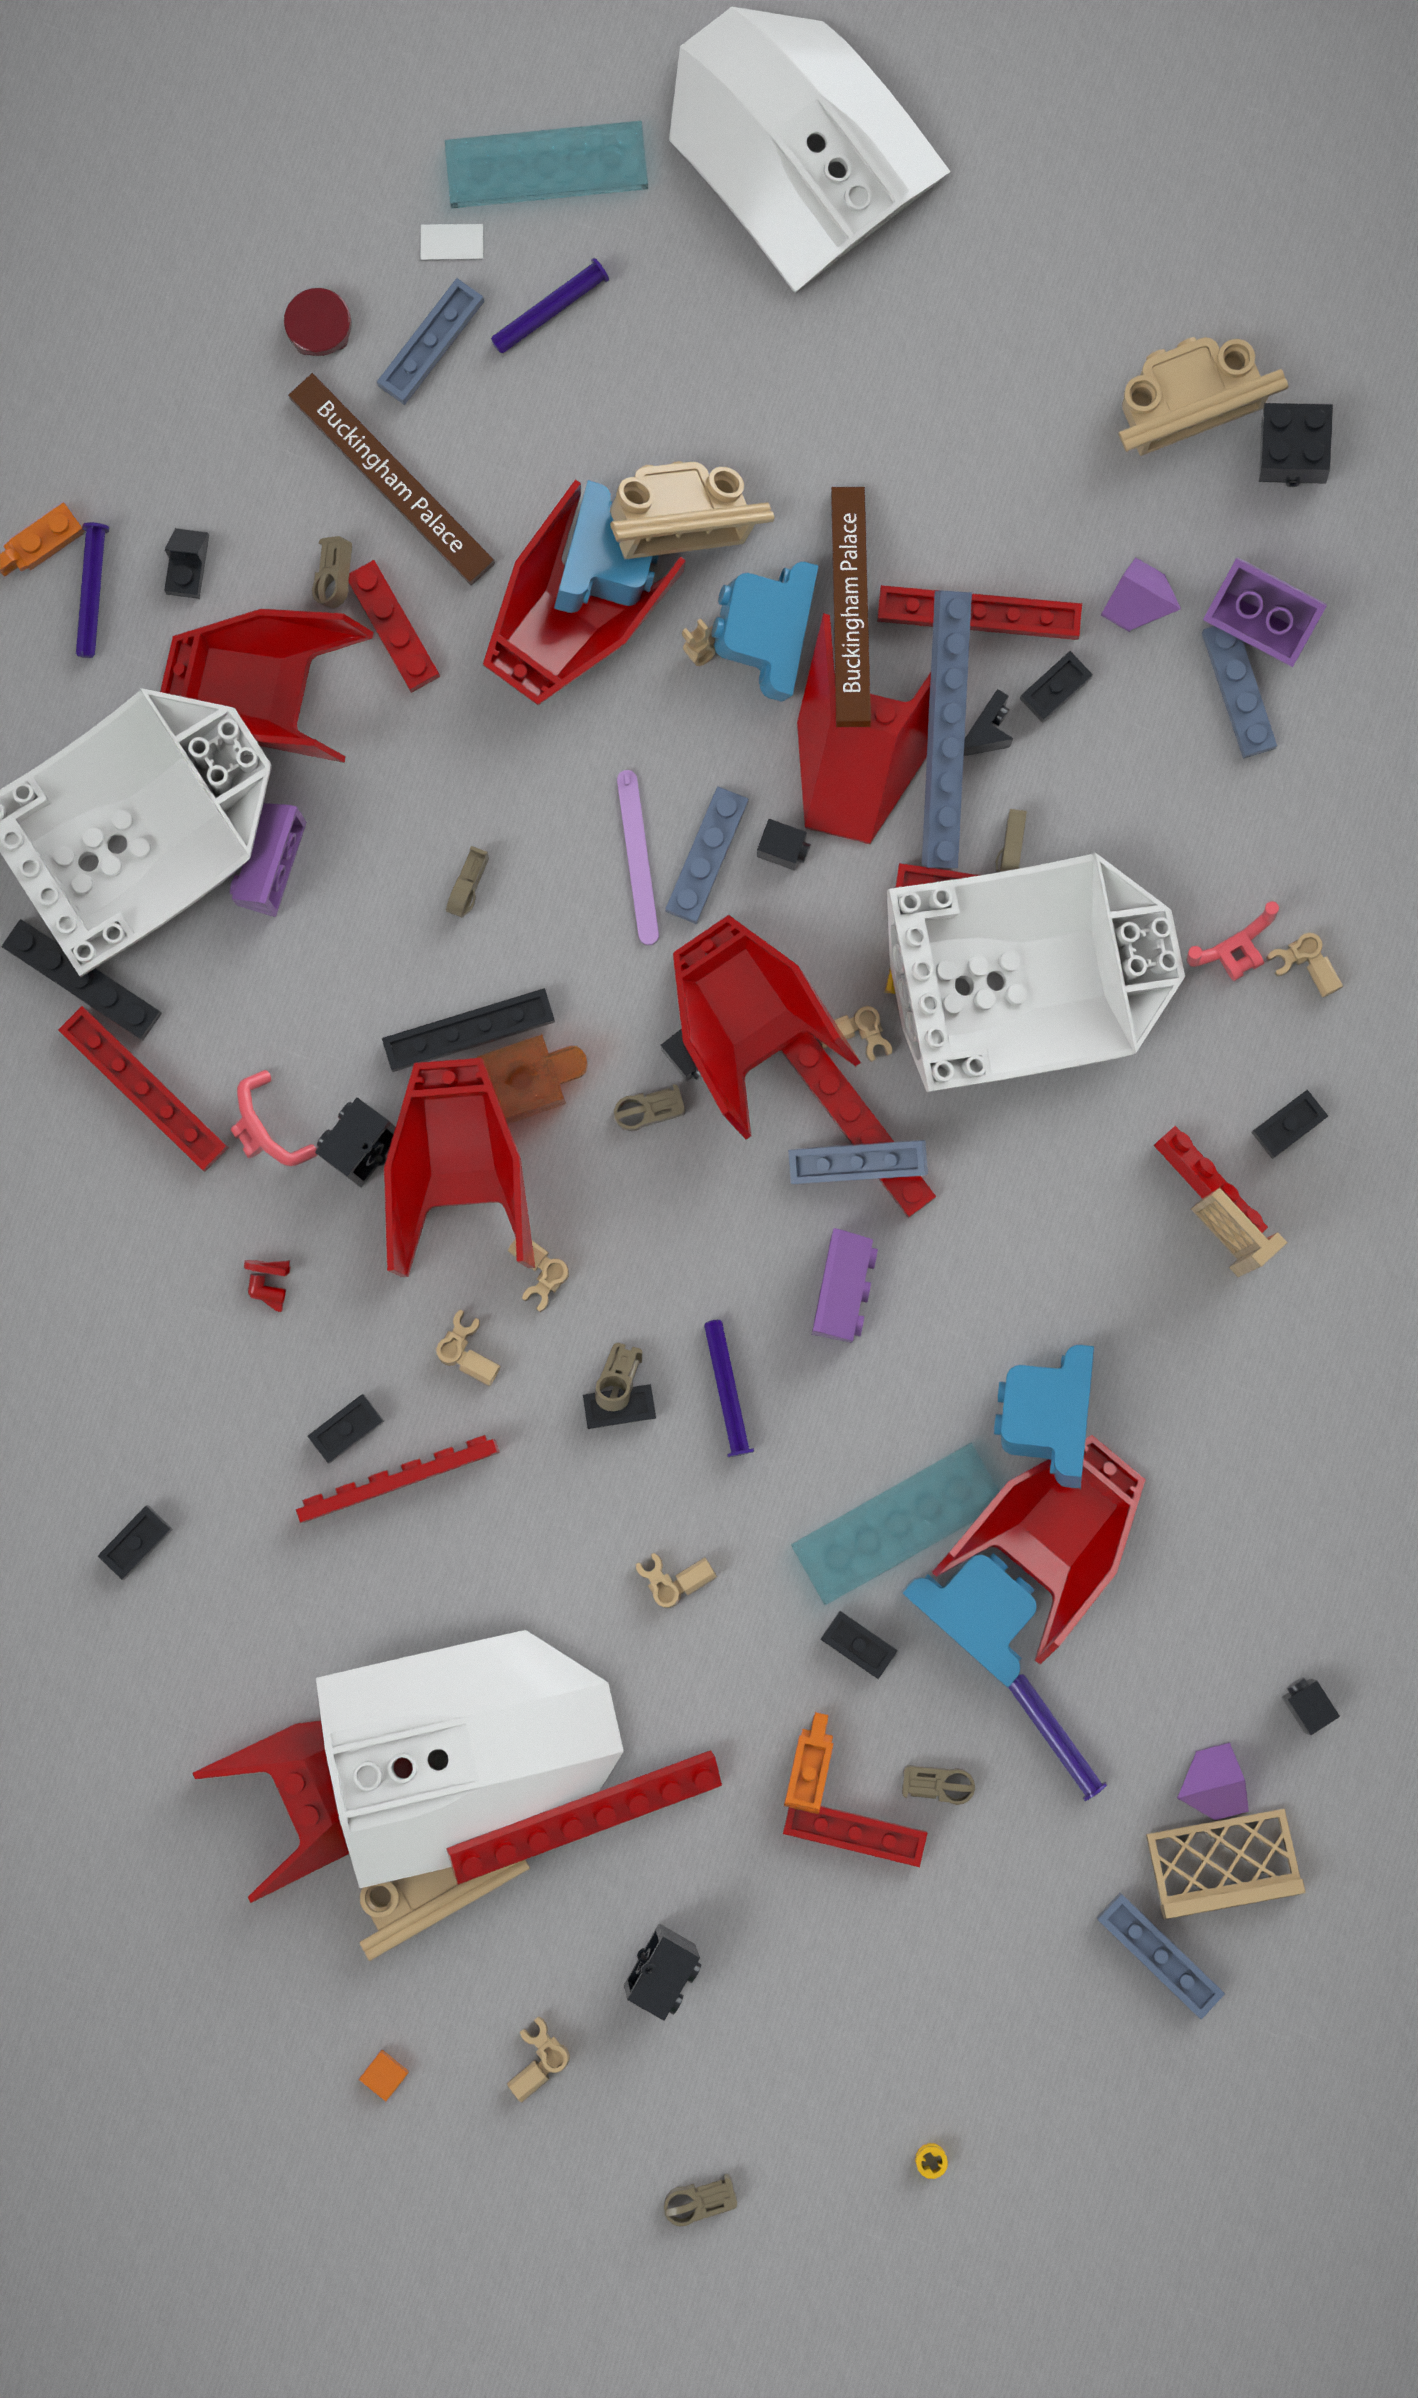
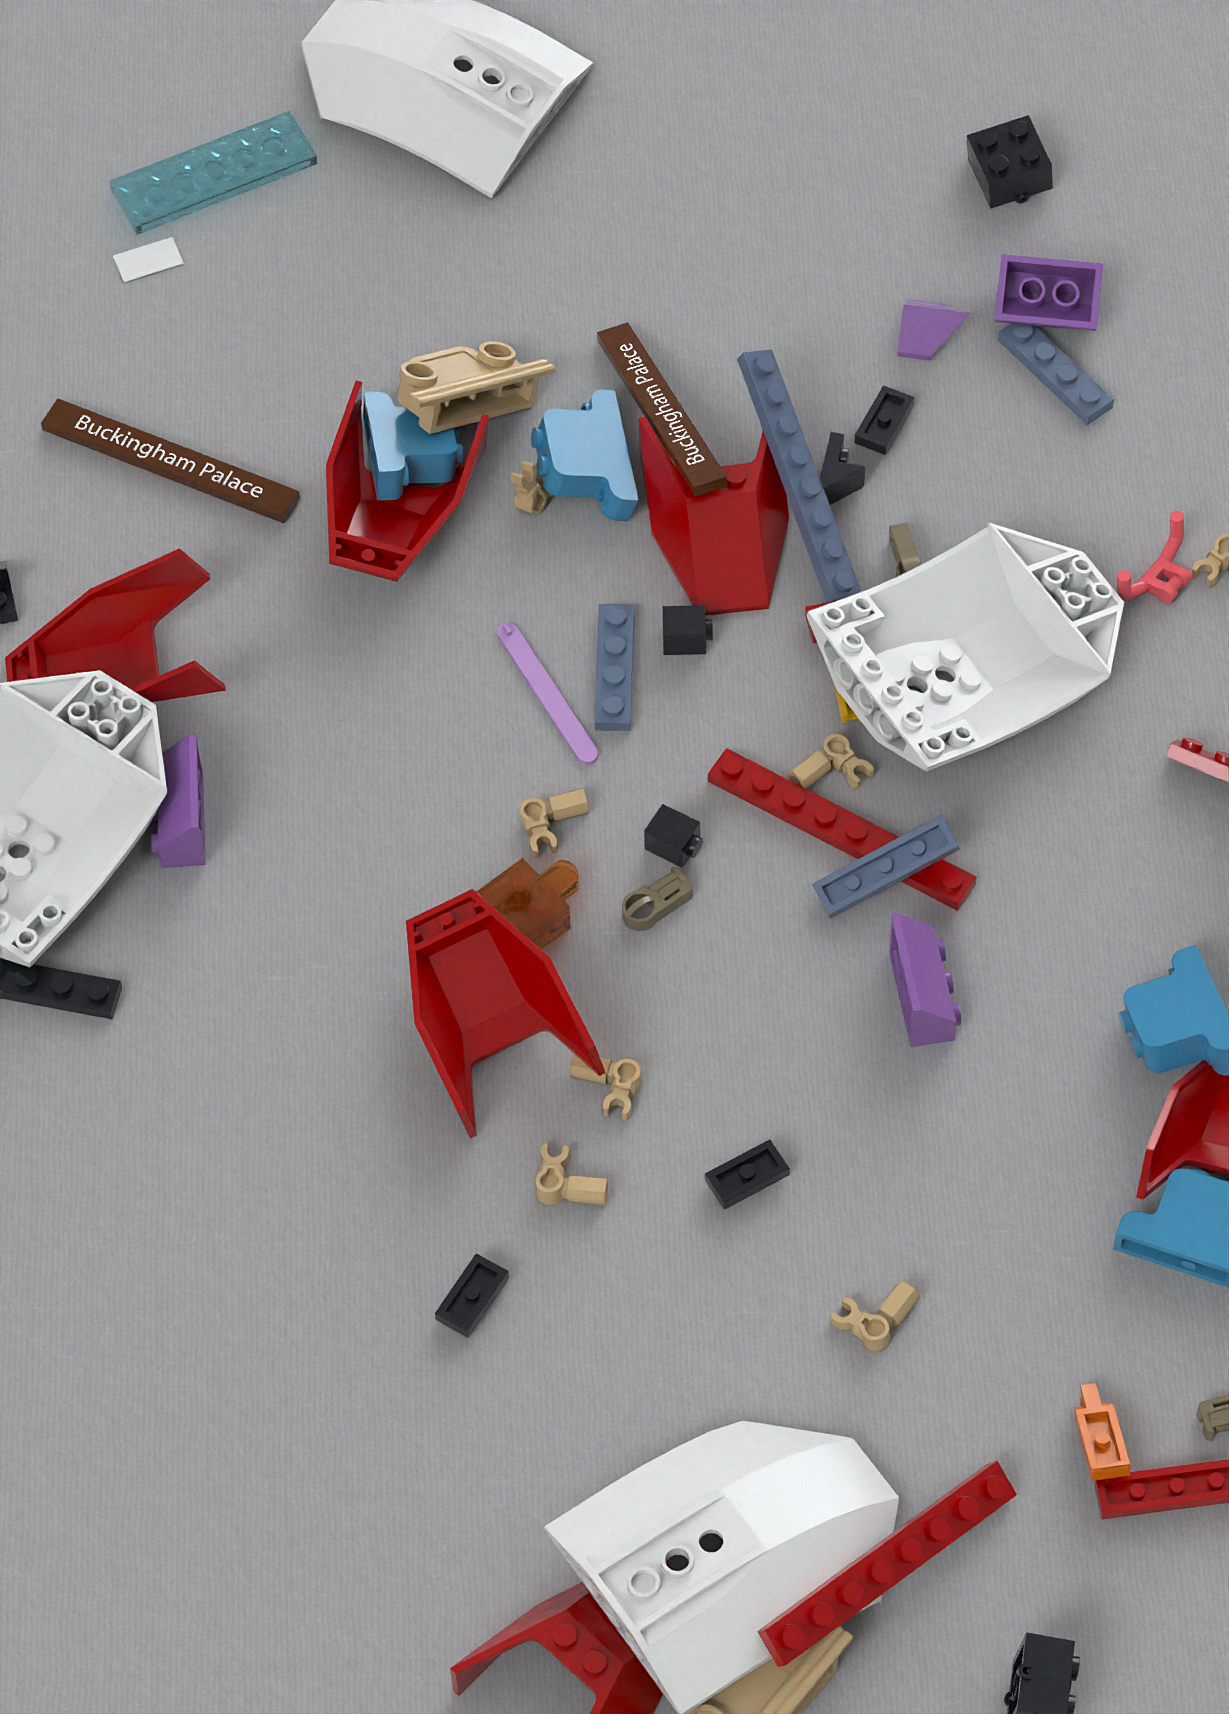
camera: 25 degrees left, 25 degrees down
(135, 1542) = (291, 1485): black plate -> none
(143, 1088) = (132, 1056): red plate -> none
(253, 1133) = (274, 1053): coral piece -> none
(257, 1290) = (324, 1201): red piece -> none
(317, 322) = (46, 357): dark red tile -> none
(335, 567) = (141, 541): dark tan piece -> none
(356, 1141) = (376, 1017): black brick -> none
(383, 1483) = (538, 1330): red plate -> none
(392, 626) = (229, 582): red plate -> none
(430, 341) = (162, 338): sand blue plate -> none
(467, 883) = (389, 763): dark tan piece -> none
(468, 1030) = (471, 871): black plate -> none
(549, 306) = (266, 276): dark purple axle -> none
(600, 983) = (536, 813): none -> tan bar
(619, 1373) = (734, 1142): dark tan piece -> none
(727, 1389) = (850, 1122): dark purple axle -> none
(741, 1007) = (718, 760): red windscreen -> none
(859, 1644) = (1094, 1307): black plate -> none
(896, 1524) = (1074, 1187): clear light blue plate -> none
(988, 613) = (801, 380): red plate -> none
(1193, 392) = (899, 153): tan brick -> none

